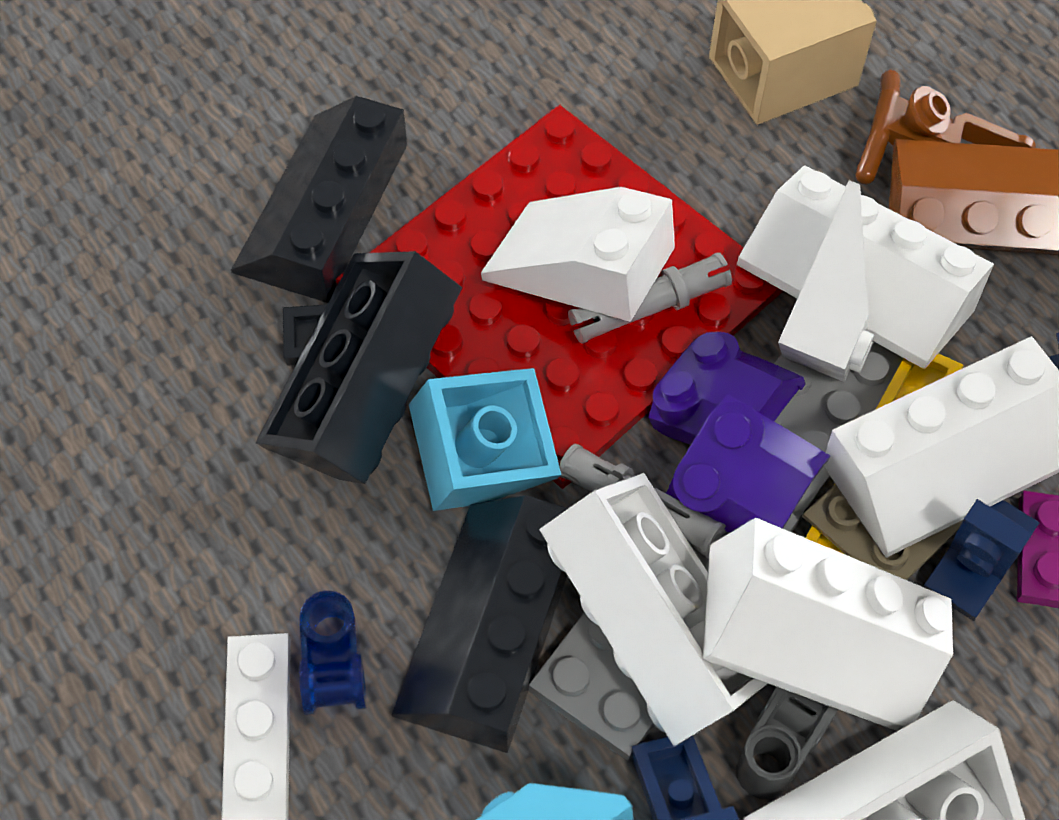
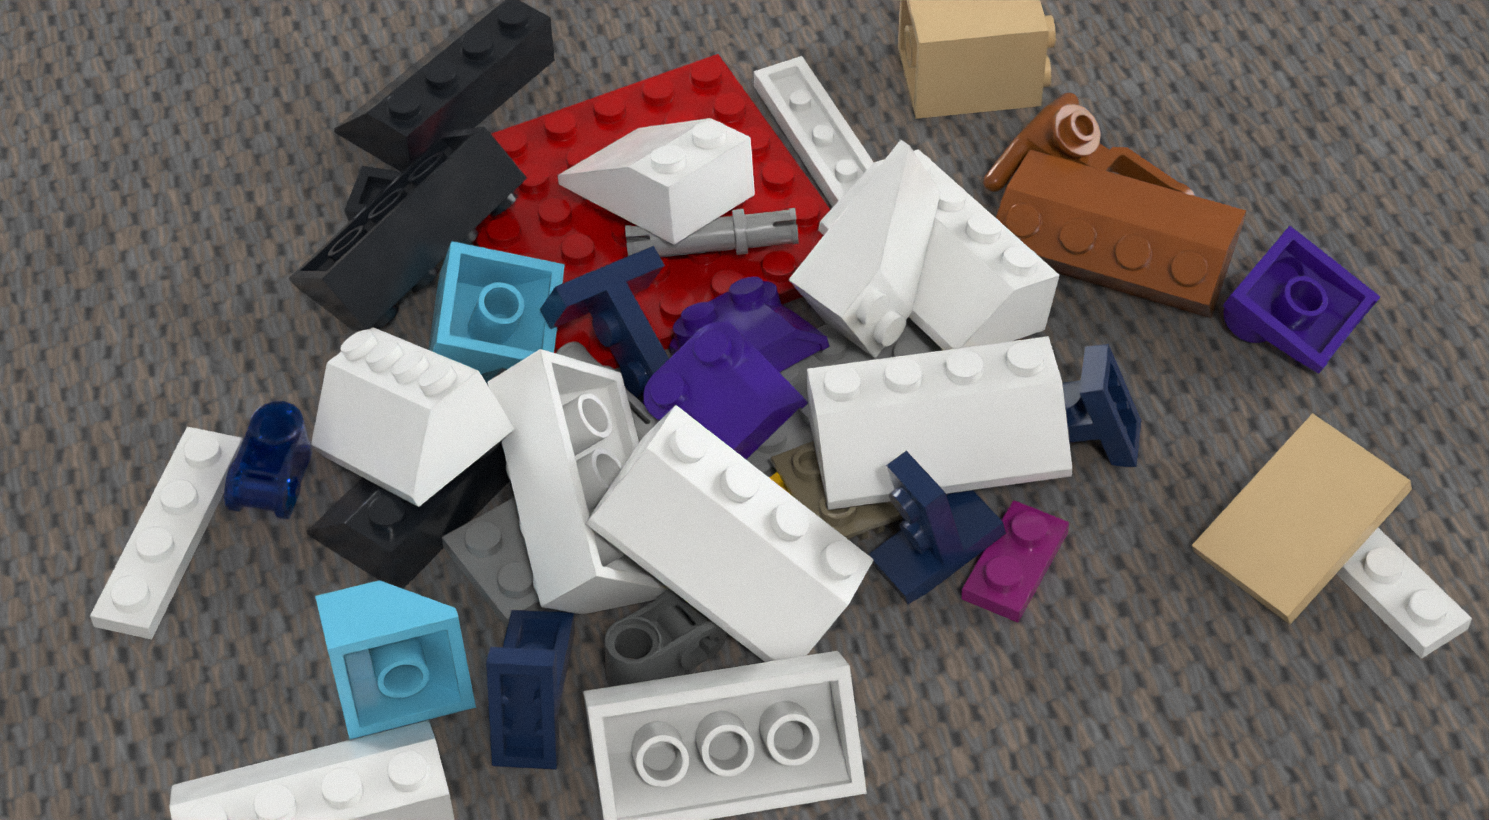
camera: 20 degrees right, 10 degrees down
(464, 584) = (404, 415): none -> white slope
(612, 415) = (615, 314): none -> dark blue bracket
(688, 165) = (813, 126): none -> white plate

